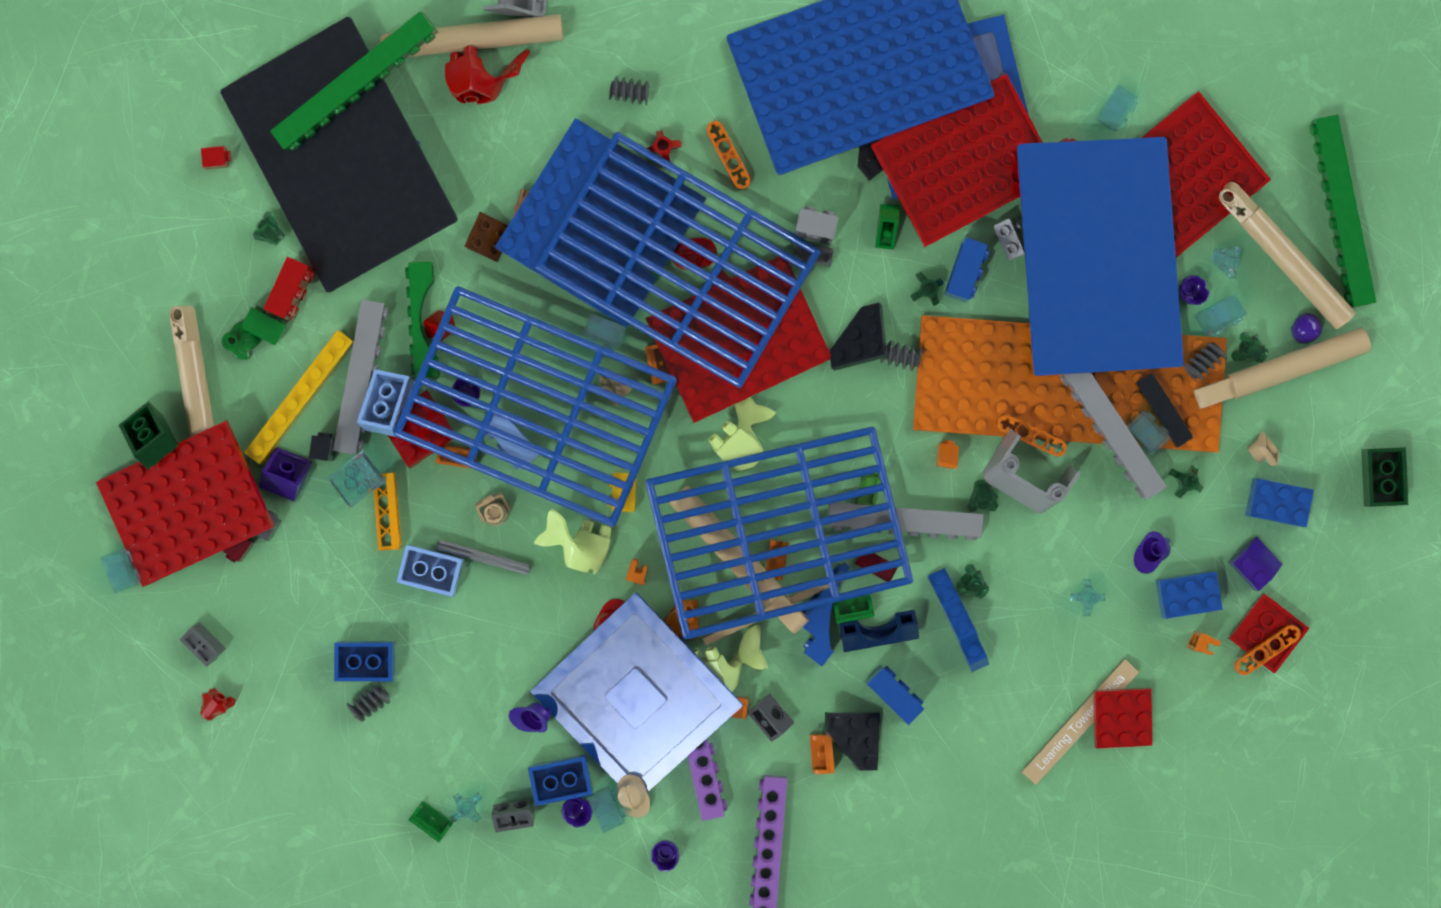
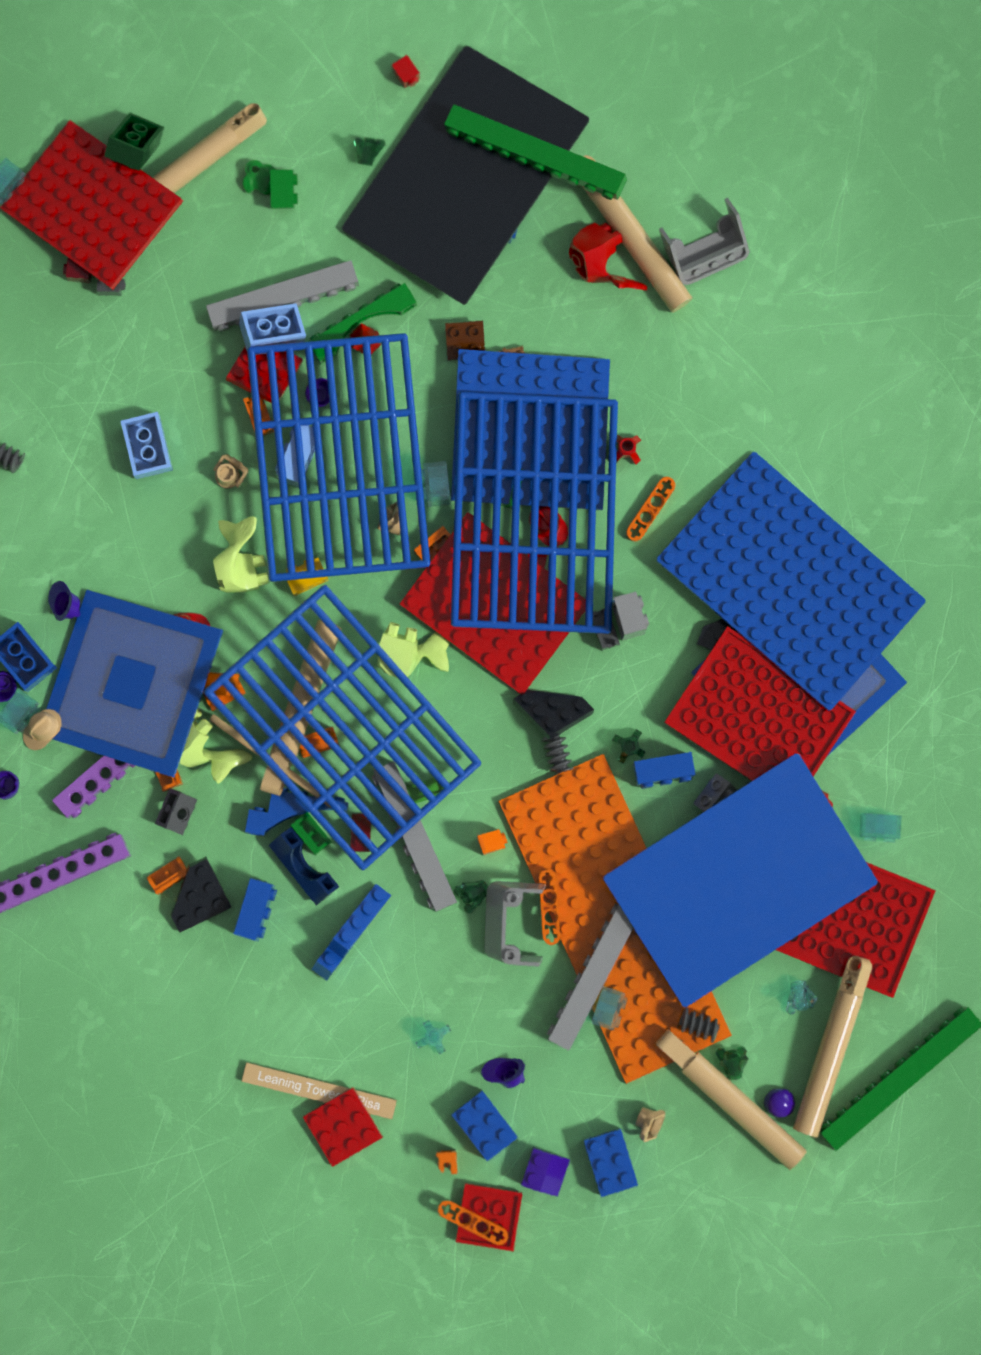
camera: 65 degrees right, 5 degrees down
(285, 474) = (163, 276): dark purple slope -> none
(289, 289) = (326, 194): red brick -> none
(299, 397) = (237, 253): yellow brick -> none
(322, 447) = (204, 294): black brick -> none
(356, 479) = (192, 339): clear light blue brick -> none
(364, 661) = (36, 431): blue brick -> none
(393, 514) = (180, 386): light orange fence -> none
(483, 557) = (183, 486): light grey axle -> none
(629, 90) = (659, 393): dark grey piece -> none
(636, 575) = (239, 625): orange hinge -> none
(887, 226) = (664, 680): green slope -> none
(973, 583) = (391, 926): clear green rock -> none
(1164, 410) = (636, 1013): black tile -> none
(1186, 481) = (585, 1069): clear green rock -> none
(1193, 290) = (757, 982): dark purple hair -> none
(1218, 316) = (748, 1017): clear light blue brick -> none
(1384, 477) = (685, 1244): dark green brick -> none

